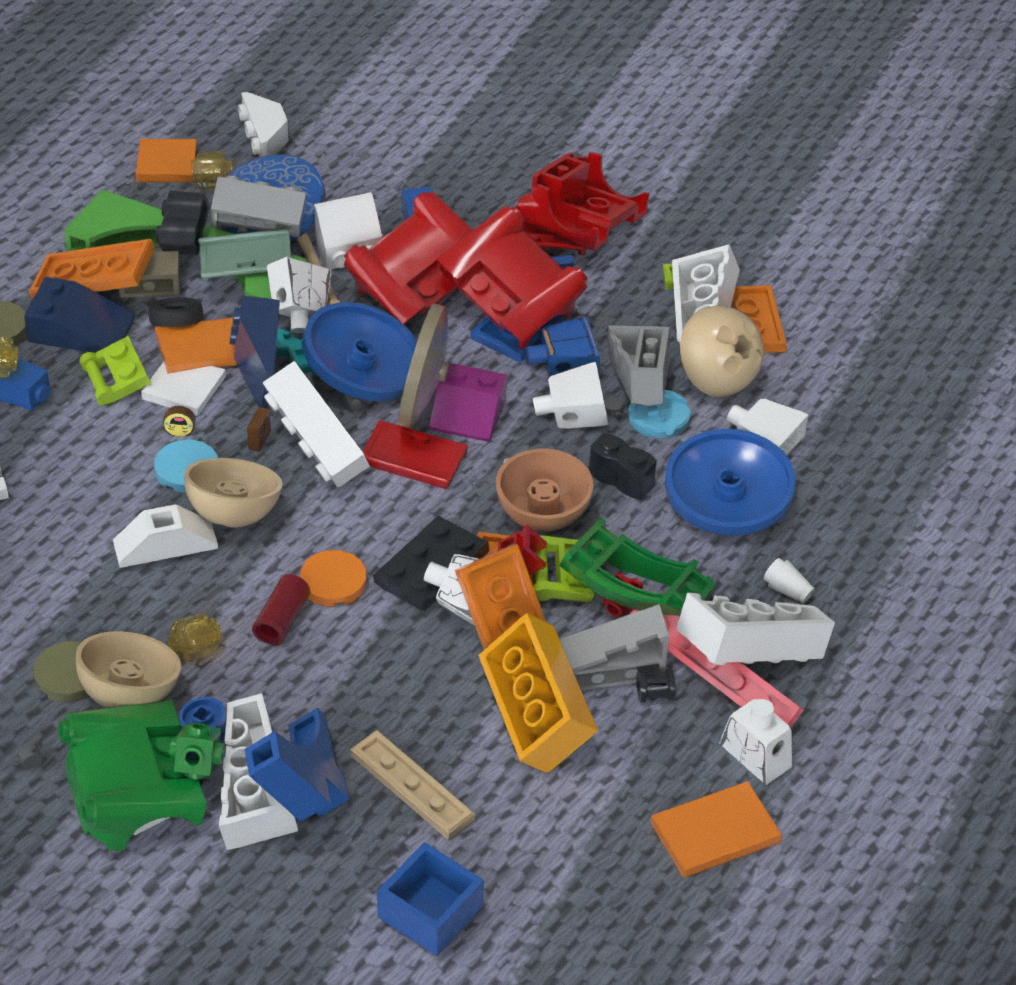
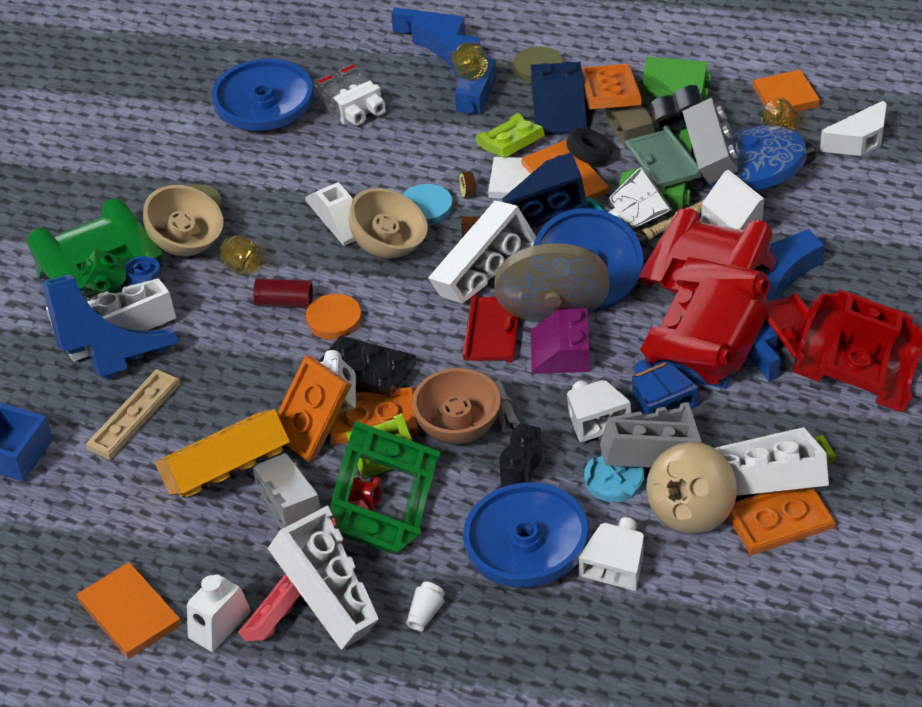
camera: 80 degrees right, 0 degrees up
(528, 543) = (372, 405): red window -> none
(644, 681) = (266, 536): black bush -> none

